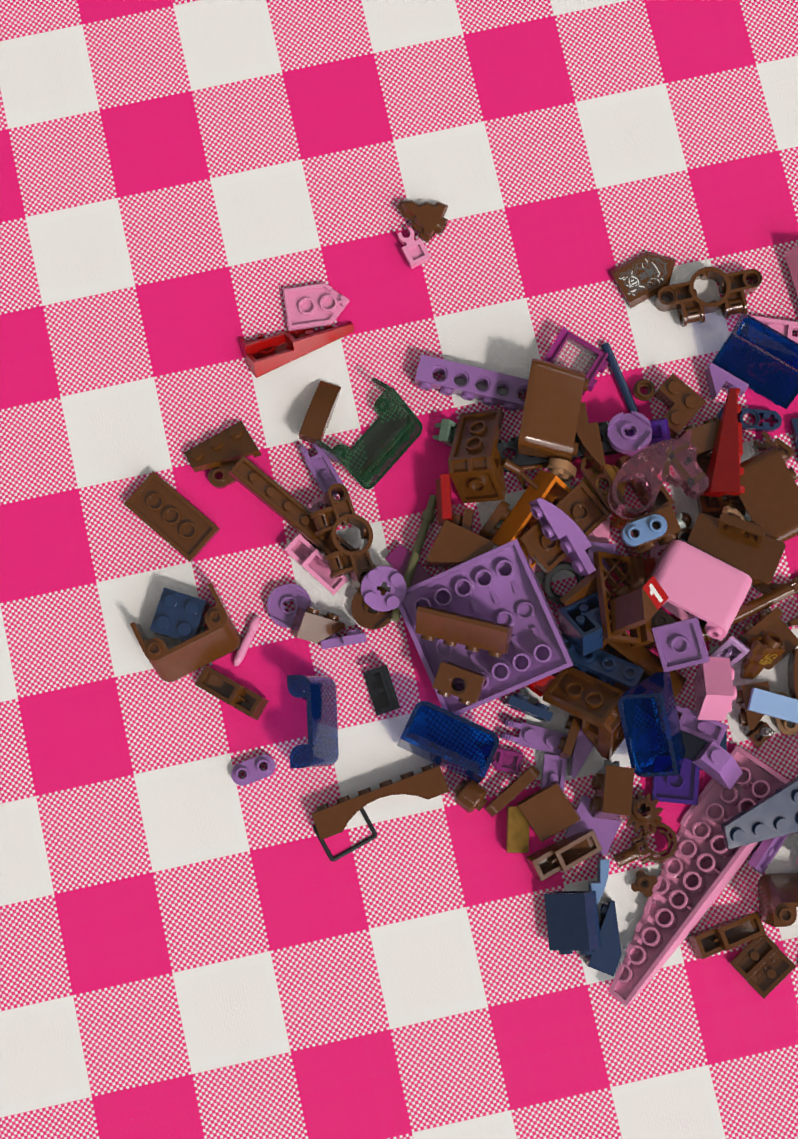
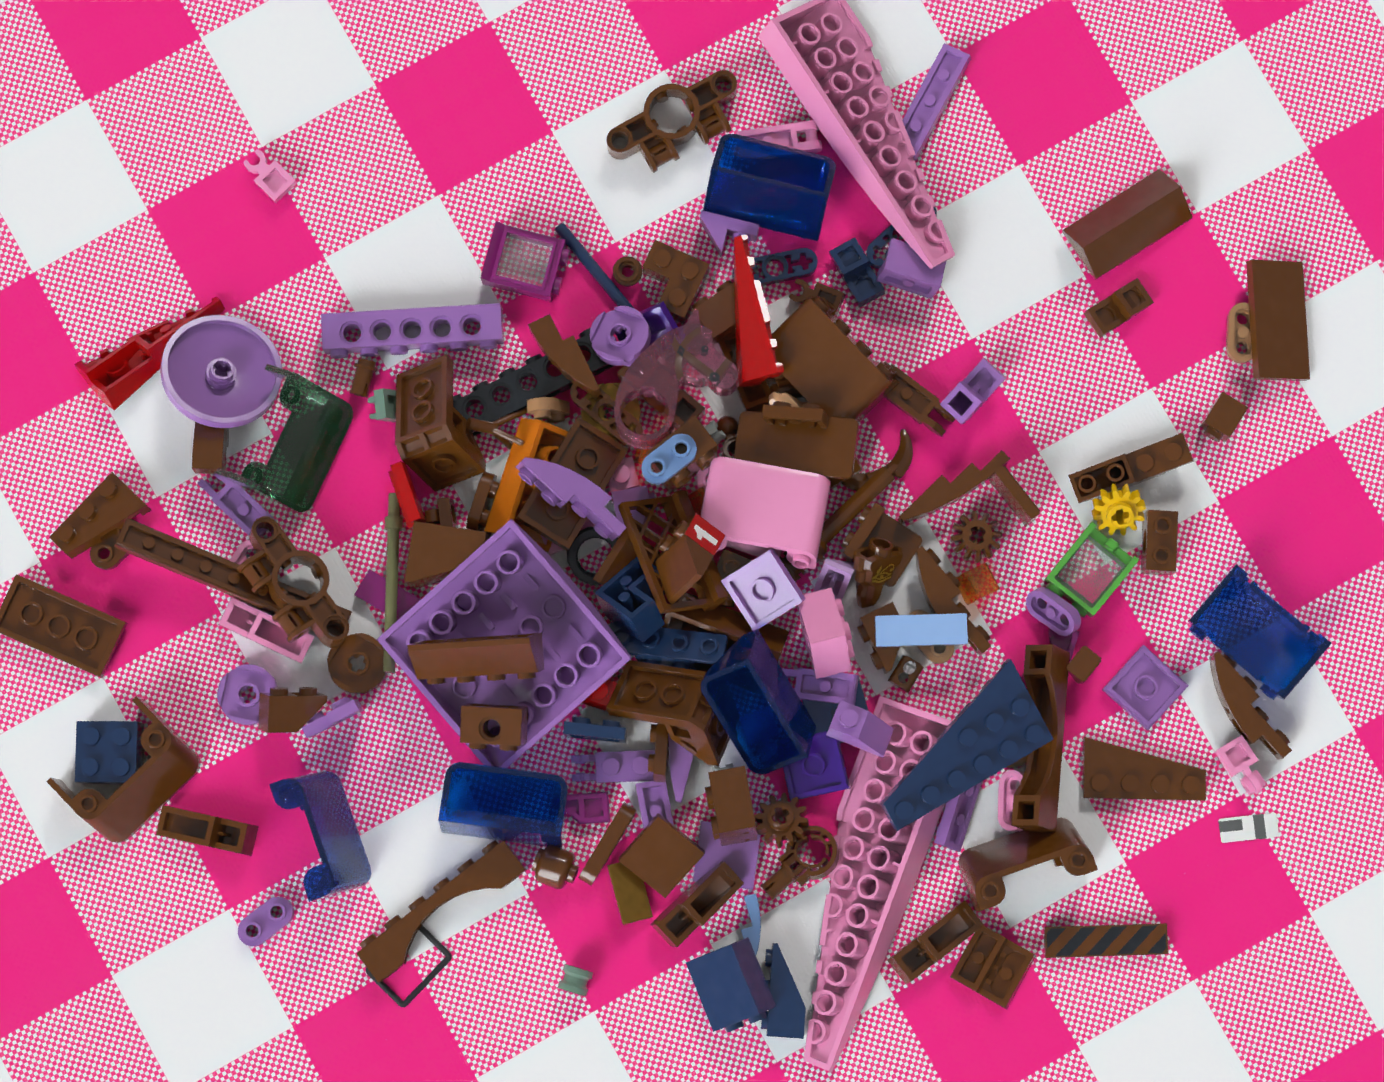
camera: 15 degrees left, 0 degrees up
(253, 627) = (209, 738): bright pink piece -> none
(312, 306) = (160, 292): bright pink tile -> none
(338, 373) = (218, 371): none -> medium lavender dish
(381, 690) = (401, 766): black hinge -> none
(391, 598) = (350, 649): medium lavender plate -> none
(424, 217) = (273, 130): reddish brown rock -> none
(436, 408) = (363, 377): none -> reddish brown pin
(460, 881) = (575, 980): none -> sand green wheel
(551, 411) = (509, 338): reddish brown windscreen -> none
(643, 277) = (583, 121): reddish brown tile -> none
(650, 882) = (804, 915): reddish brown plate -> none

